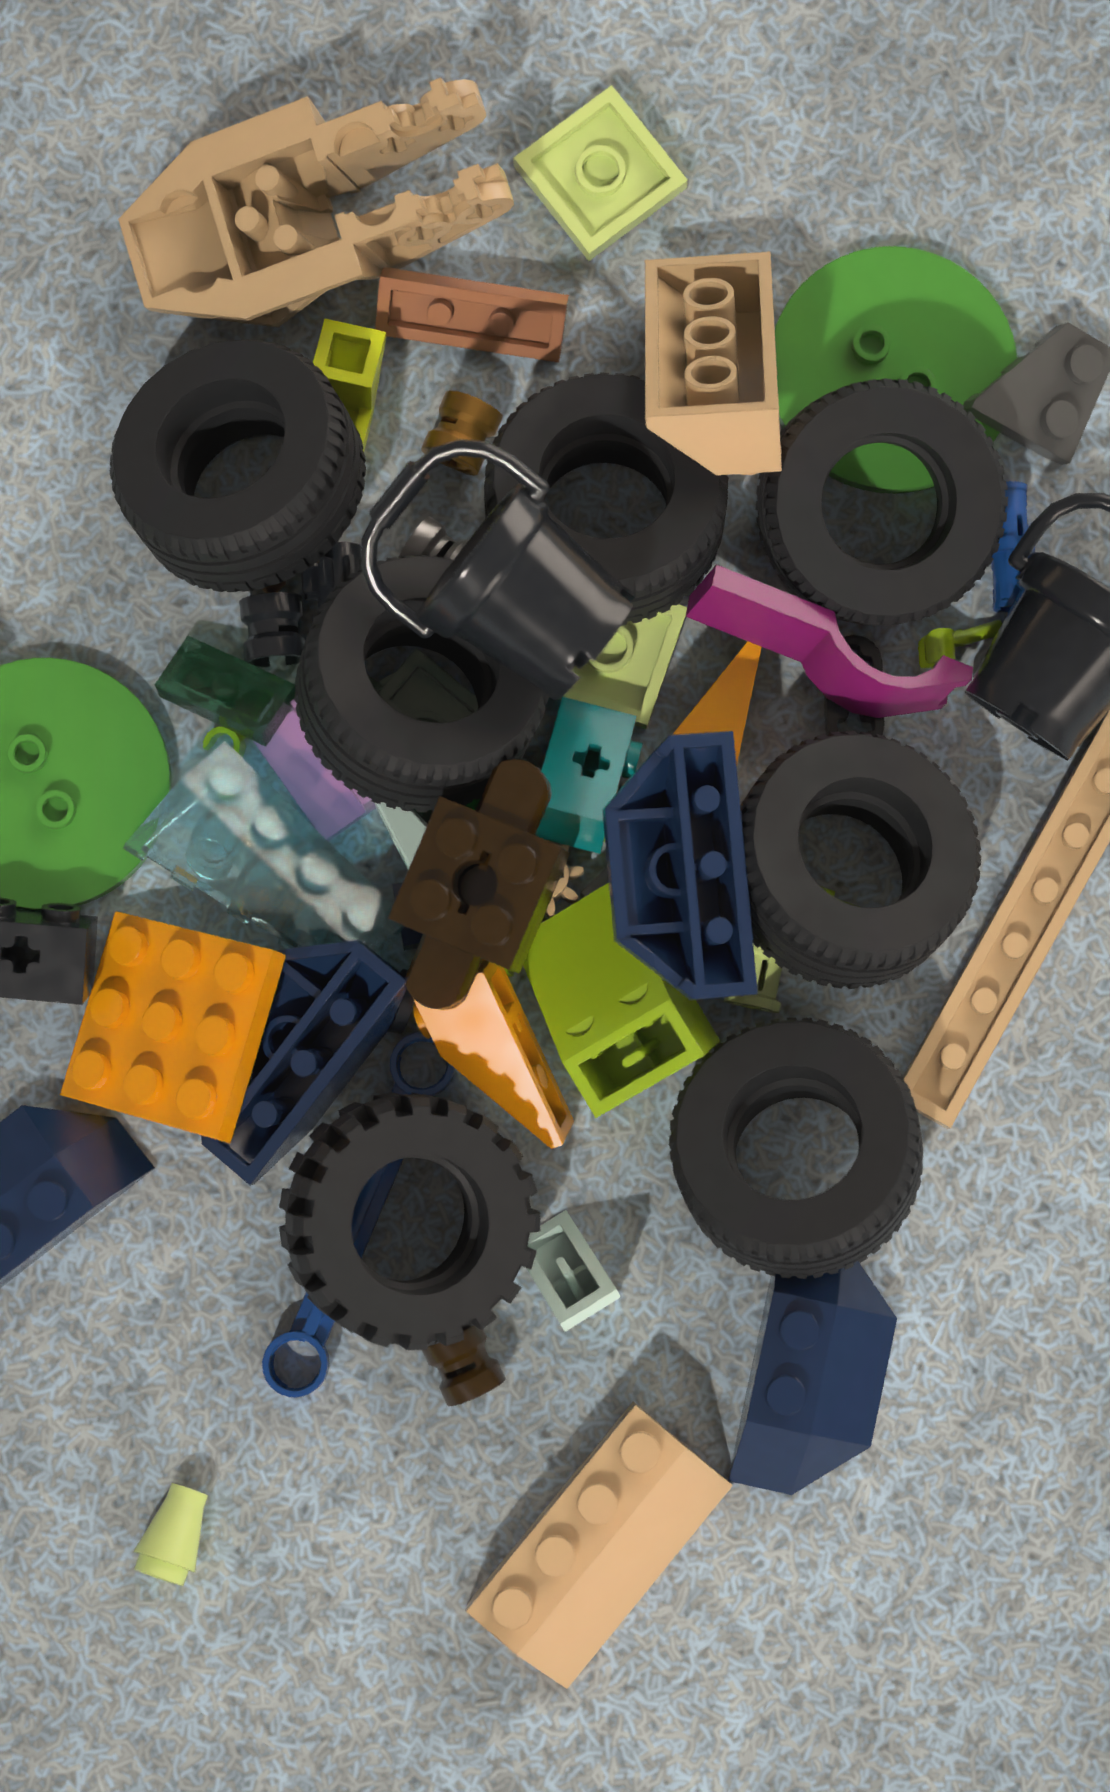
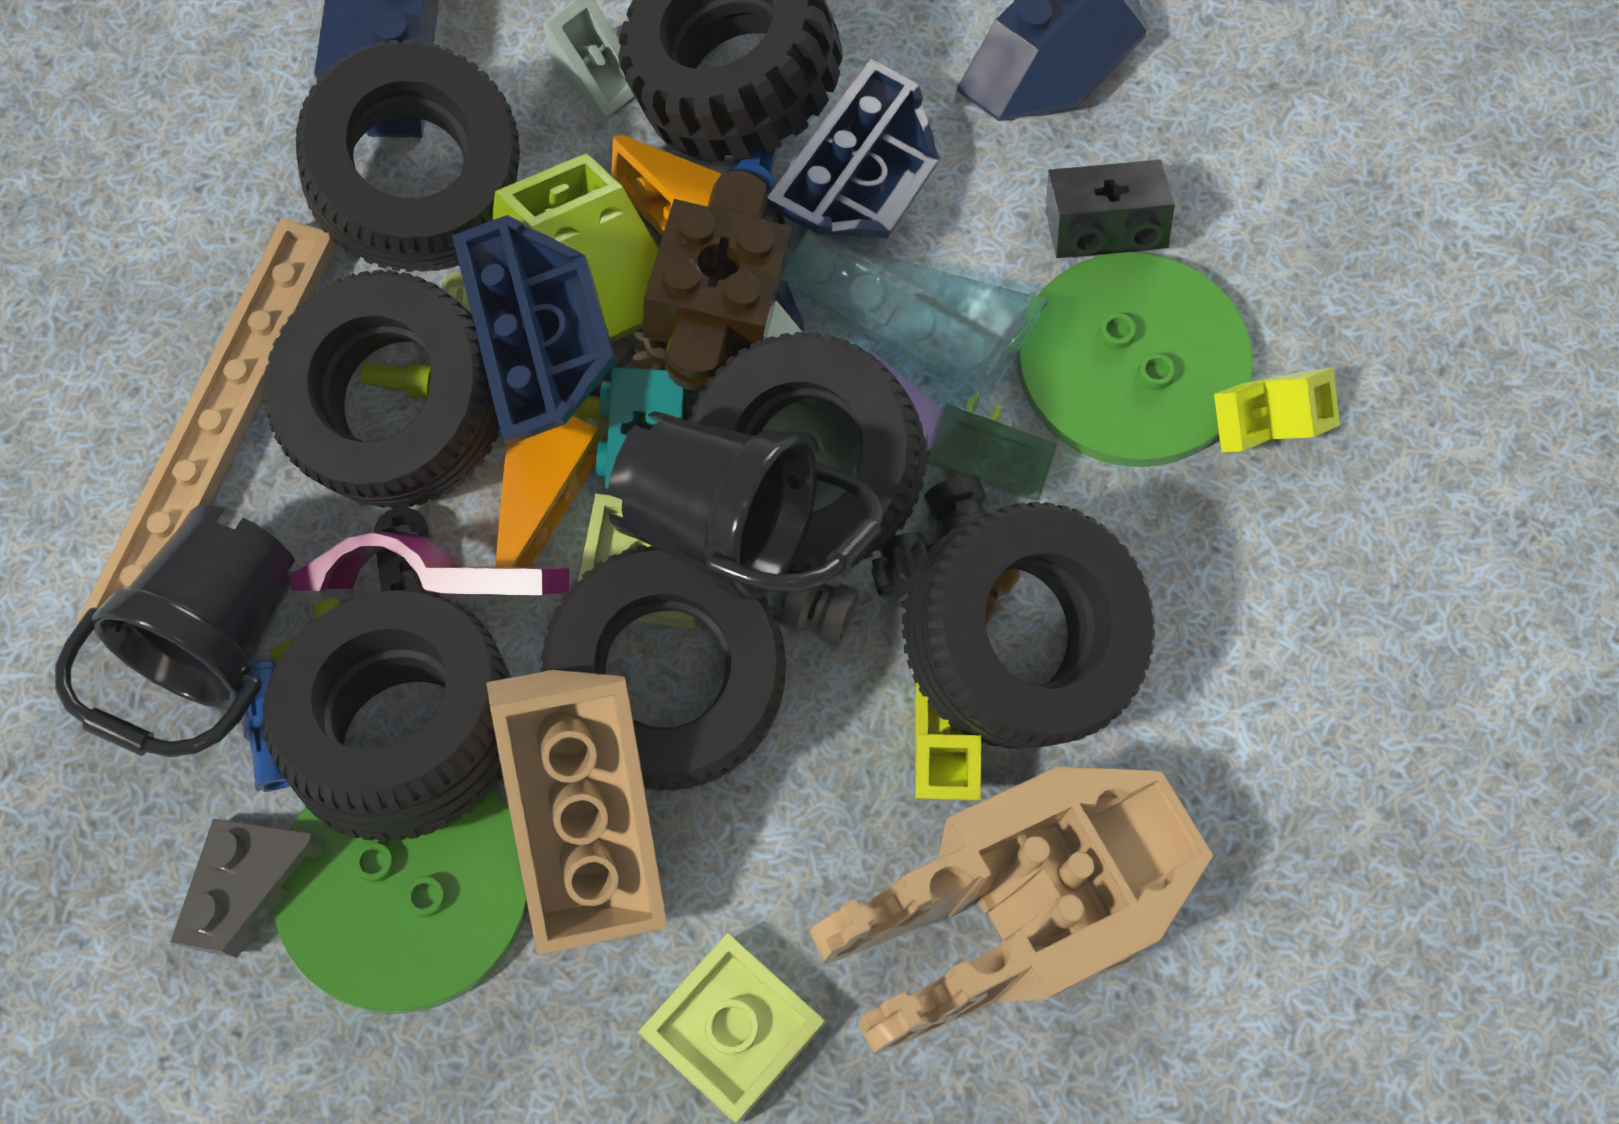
camera: 175 degrees right, 15 degrees down
(173, 1025) = (966, 172): light orange plate -> none
(464, 419) = (822, 728): pearl gold wheel -> none
(471, 314) = (834, 849): nougat plate -> none

